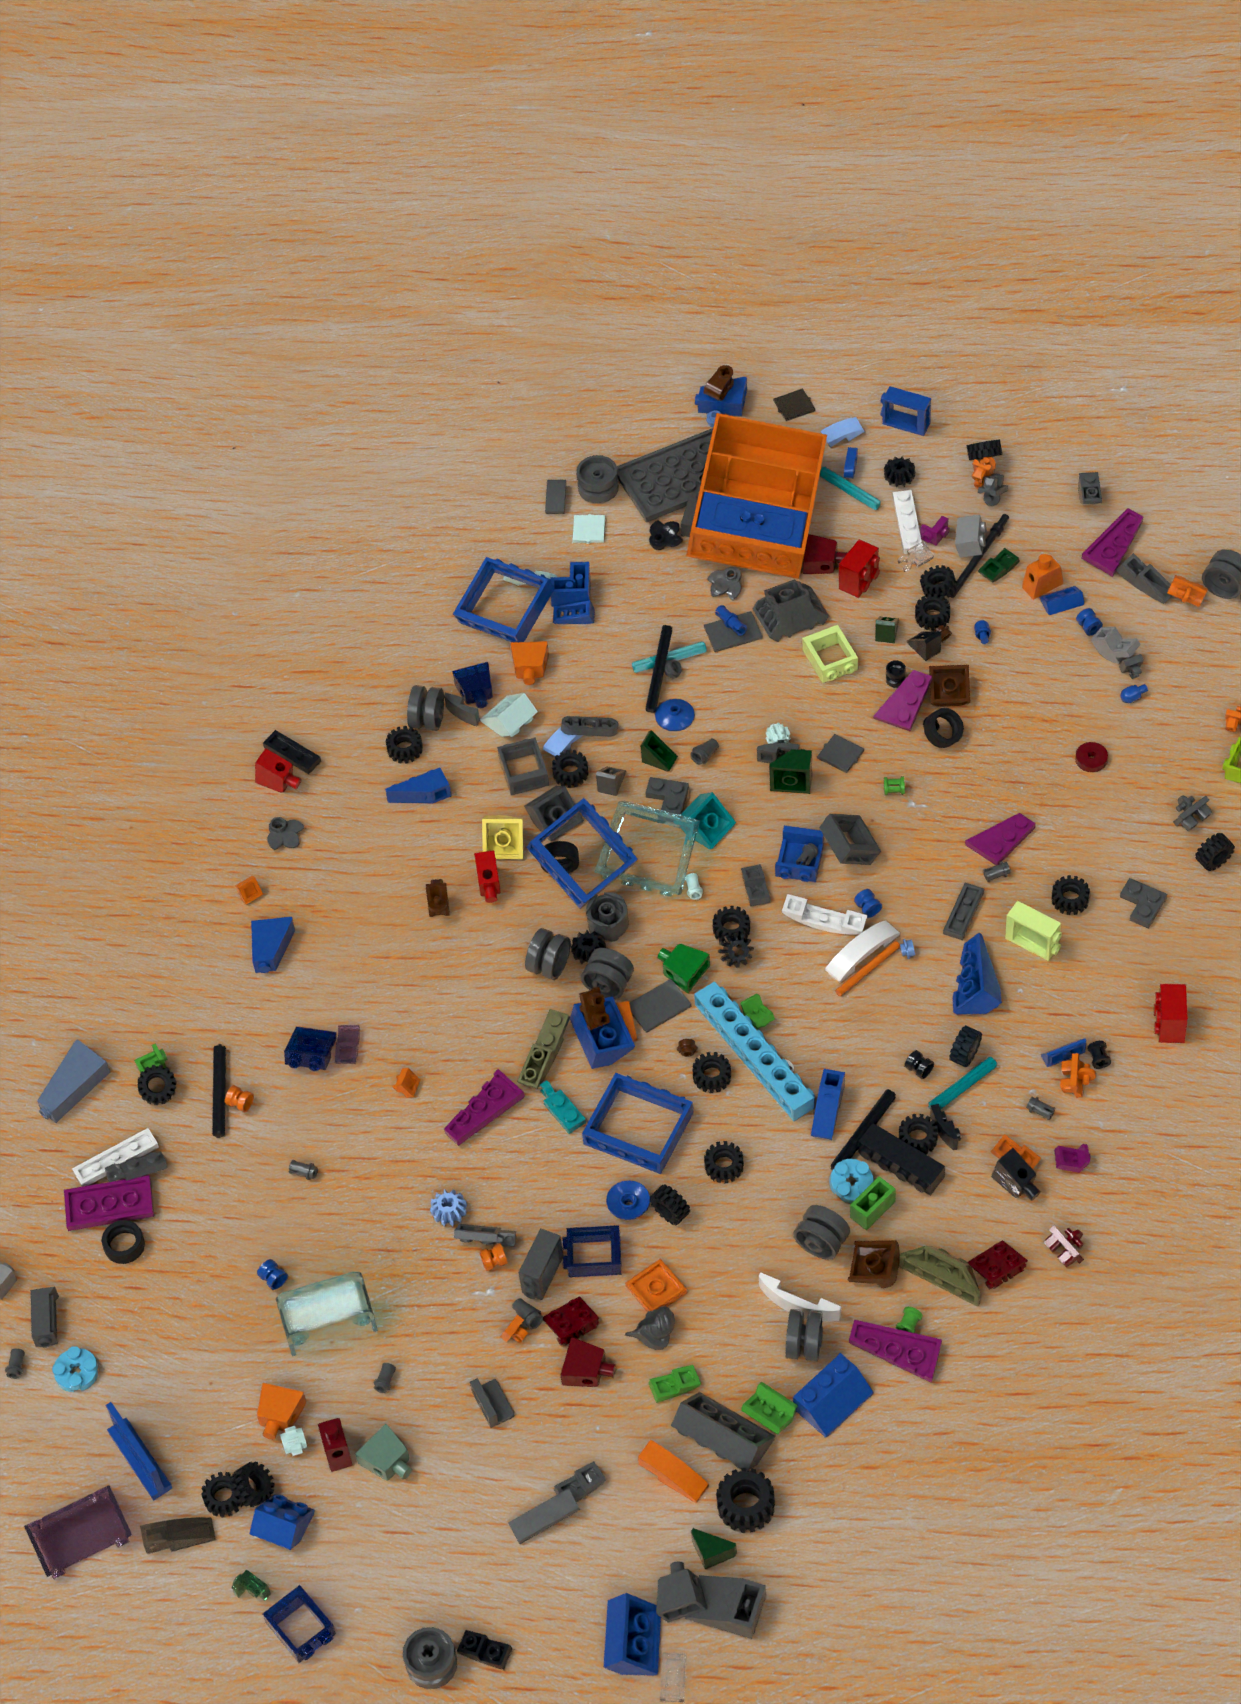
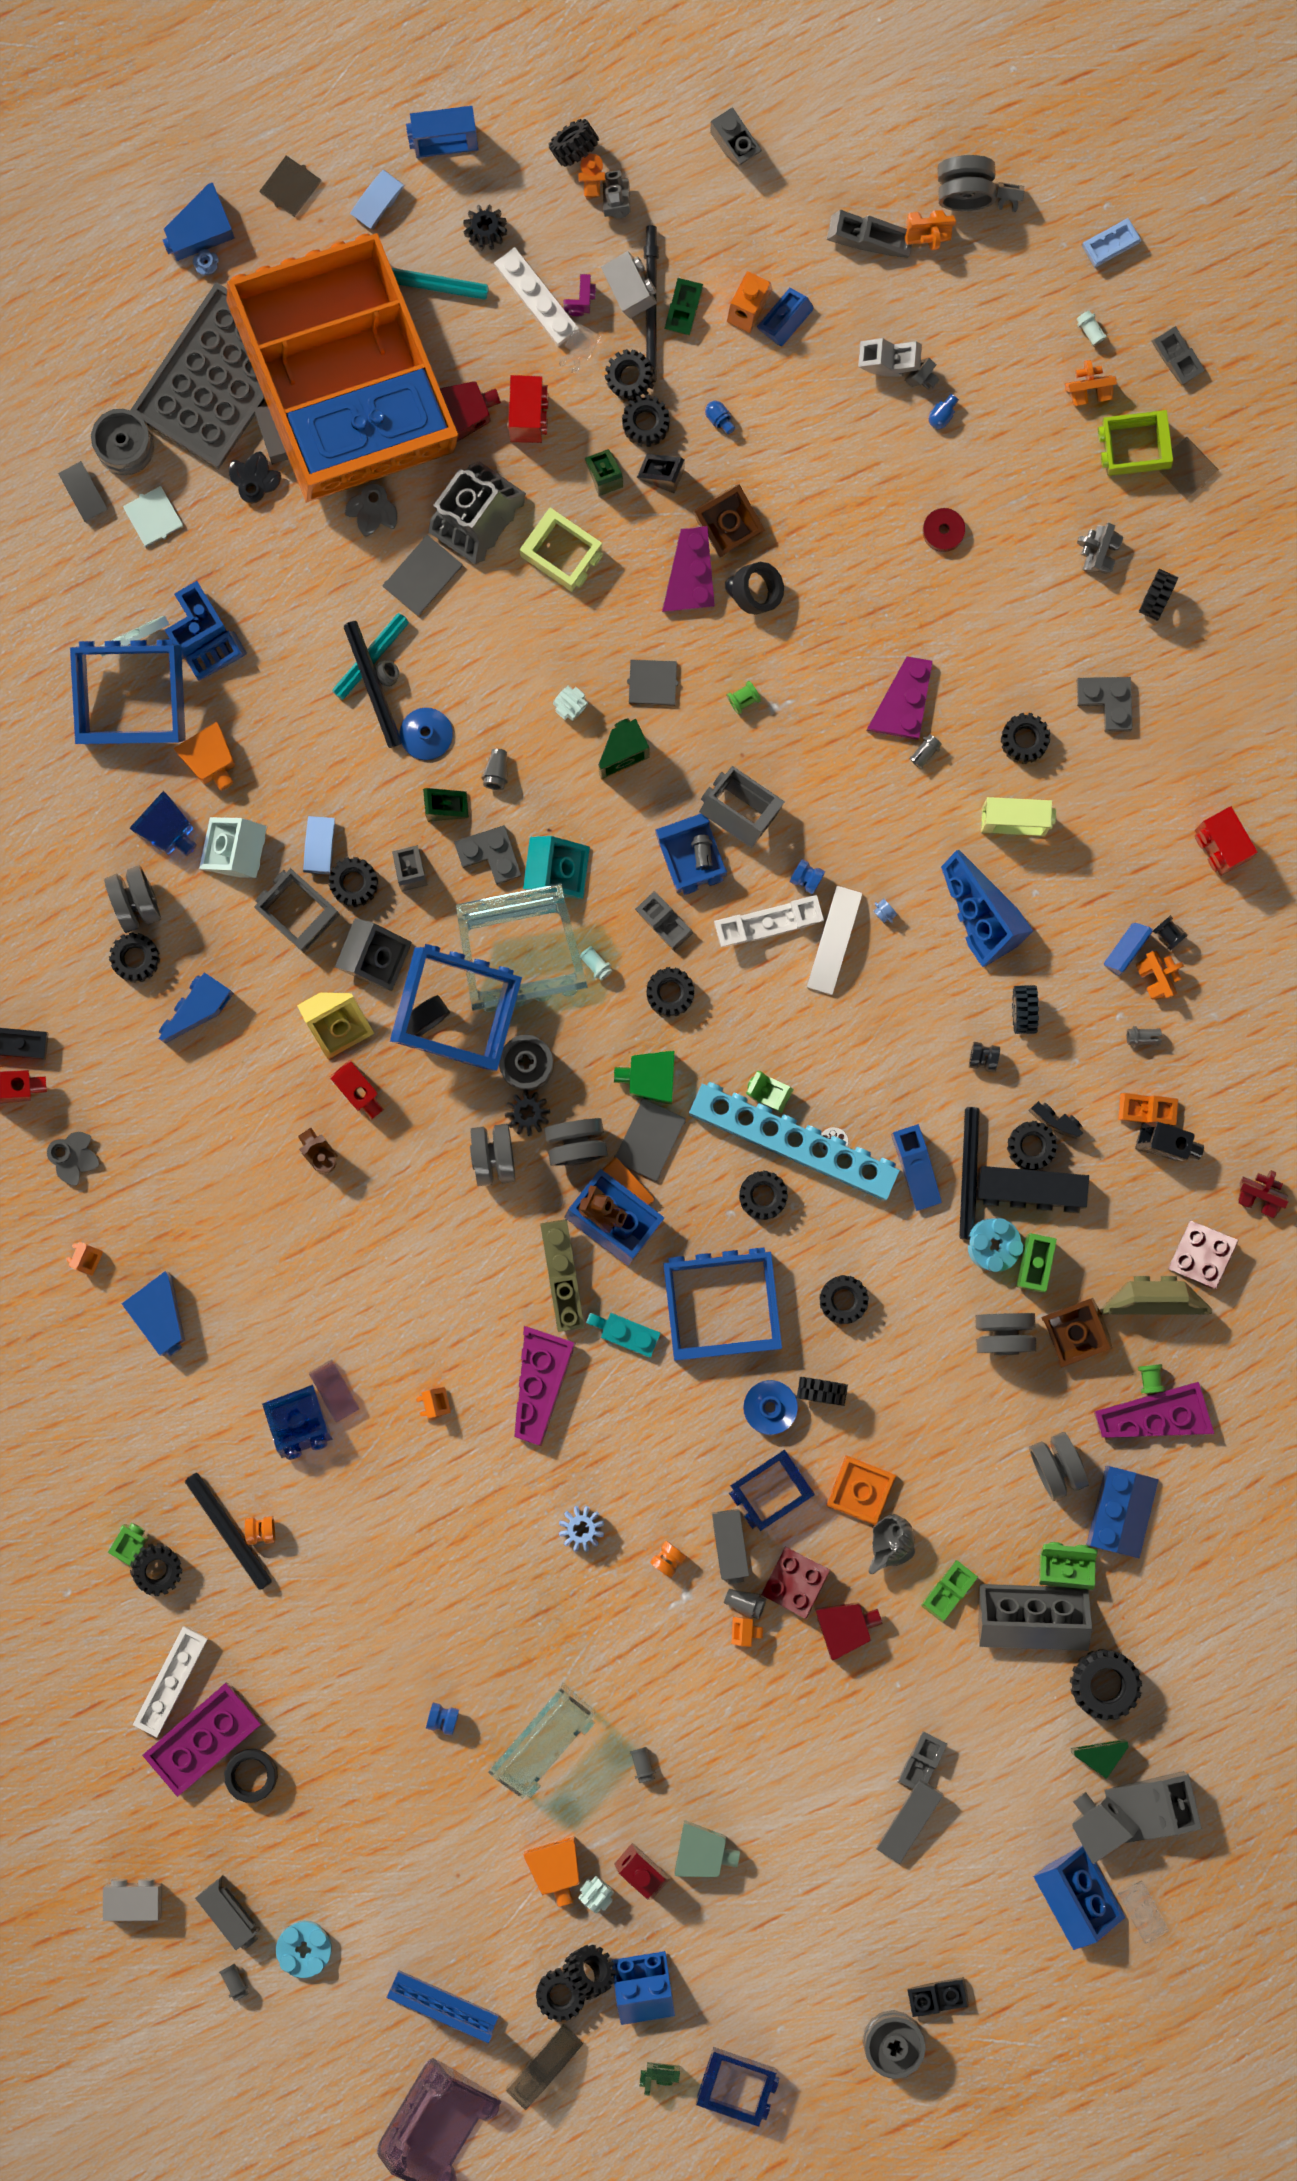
camera: 35 degrees left, 30 degrees up
(72, 1081) = (54, 1618): sand blue slope -> none
(136, 1167) = (205, 1680): dark grey hinge -> none
(302, 1169) = (390, 1573): dark grey pin -> none
(457, 707) = (164, 870): dark grey slope -> none
(485, 1234) = (640, 1537): dark grey hinge -> none
(491, 1402) = (772, 1723): dark grey panel -> none
(601, 726) = (337, 822): dark grey beam -> none
(672, 1471) = (1010, 1694): orange slope -> none
(687, 1047) = (716, 1179): reddish brown plate -> none
(720, 383) = (190, 220): reddish brown piece -> none
(730, 955) = (698, 1026): black gear -> none
(731, 620) = (415, 565): blue pin -> none
(770, 752) = (577, 731): dark grey slope -> none
(772, 1289) = (1055, 1419): white slope -> none
(850, 463) = (417, 244): blue beam -> none
(867, 968) = (853, 960): orange bar -> none
(895, 673) = (654, 532): black wheel -> none
(945, 632) = (676, 446): reddish brown plate -> none
(963, 911) = (916, 824): dark grey tile -> none
(964, 1083) = (1043, 1053): teal axle -> none
(1072, 1159) = (1213, 1082): magenta bracket -> none
(1089, 621) = (838, 336): blue wheel -> none
(1114, 542) = (801, 209): magenta wing -> none

